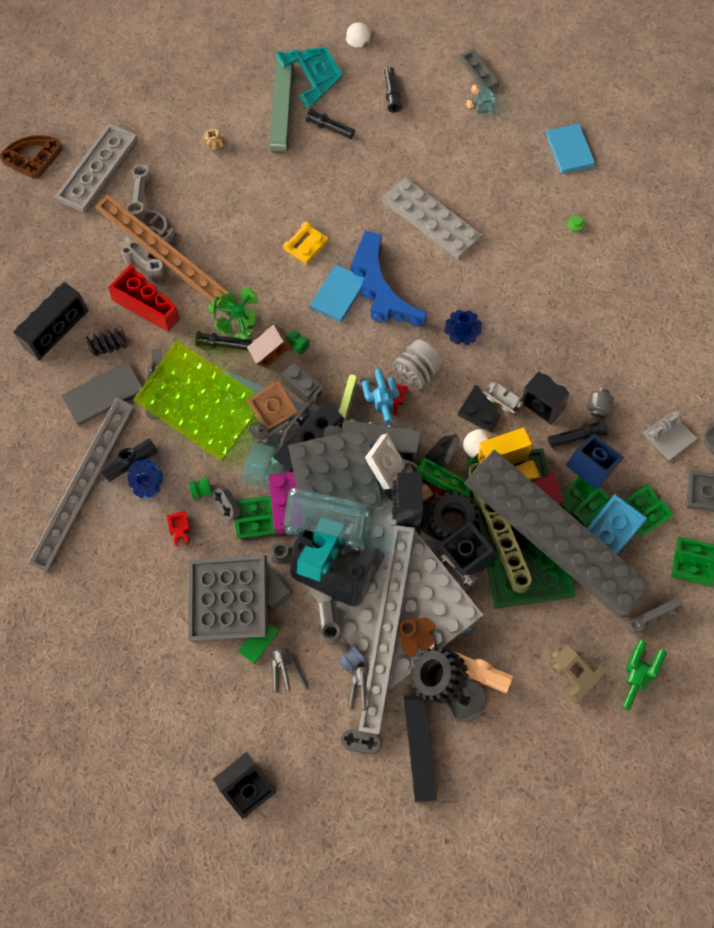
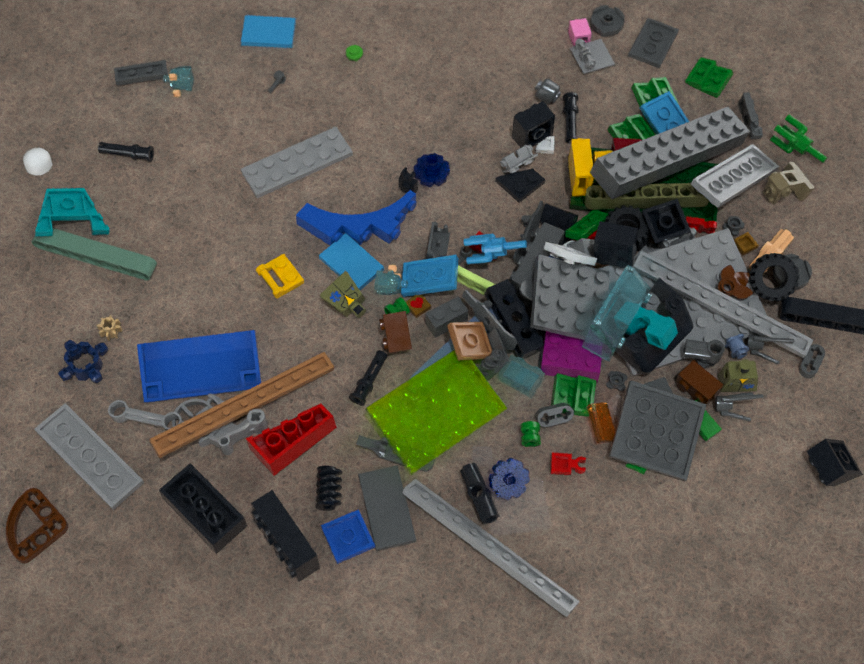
camera: 80 degrees left, 5 degrees down
(65, 255) = (203, 508): none -> black brick
(68, 370) = (347, 536): none -> blue plate
(178, 142) = (91, 371): none -> dark blue piece
(198, 212) = (199, 365): none -> blue slope
(229, 546) = (601, 422): none -> clear orange plate
(245, 315) = (349, 351): bright green plant -> none
(296, 296) = (344, 296): none -> olive torso
(296, 629) = (698, 383): none -> reddish brown brick
(311, 359) = (418, 305): none -> pearl gold tile
(313, 668) = (739, 376): none -> olive torso
(321, 325) = (390, 282): none -> clear light blue piece
(323, 121) = (135, 221): black pin -> none
(340, 357) = (430, 275): none -> dark azure tile
(379, 355) = (438, 241): none -> dark grey hinge
(418, 364) = (464, 211): light grey wheel -> none
(428, 432) = (531, 224): none -> dark grey piece
(437, 309) = (407, 181): none -> black plate
(472, 441) = (558, 191): white hair -> none
(485, 585) = (701, 226): none -> red plate
(485, 644) = (745, 243): none -> pearl gold tile
(509, 624) = (734, 220): none -> dark grey plate
(519, 175) = (280, 78): none -> dark grey hand
(535, 421) = (546, 146): none -> white tile
(557, 609) = (734, 175): none -> light grey plate
(594, 461) = (606, 109): dark blue brick -> none
(694, 413) = (579, 30): none -> bright pink brick

